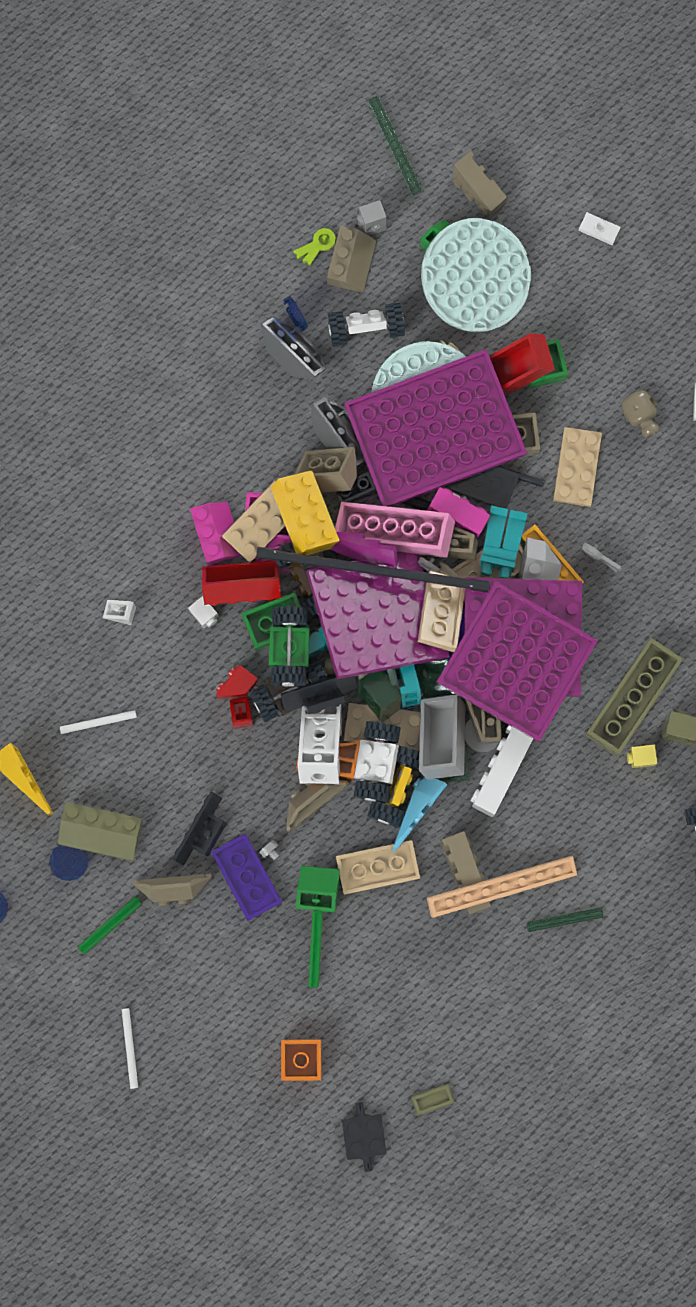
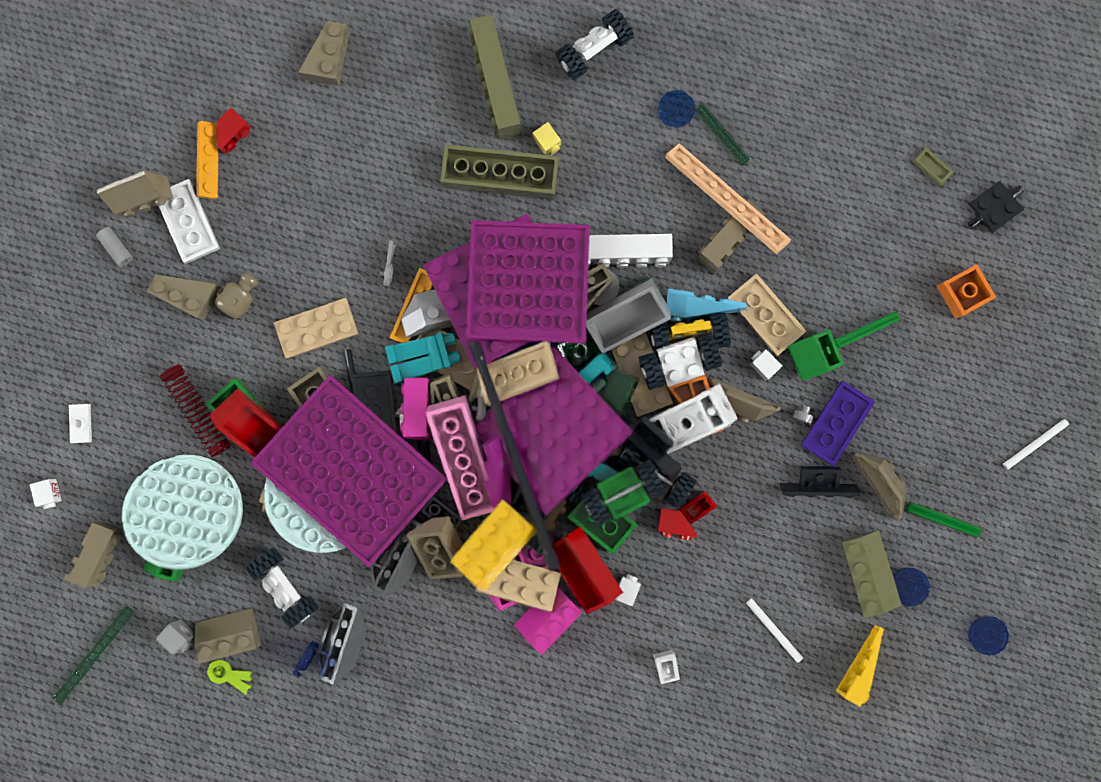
camera: 120 degrees left, 5 degrees up
(334, 840) = (765, 364): none -> white brick
(553, 171) = (45, 493): none -> white brick
(600, 321) = (175, 372): none -> dark red piece
(605, 893) = (674, 114): none -> clear blue tile
(665, 369) = (185, 294): none -> dark tan wedge

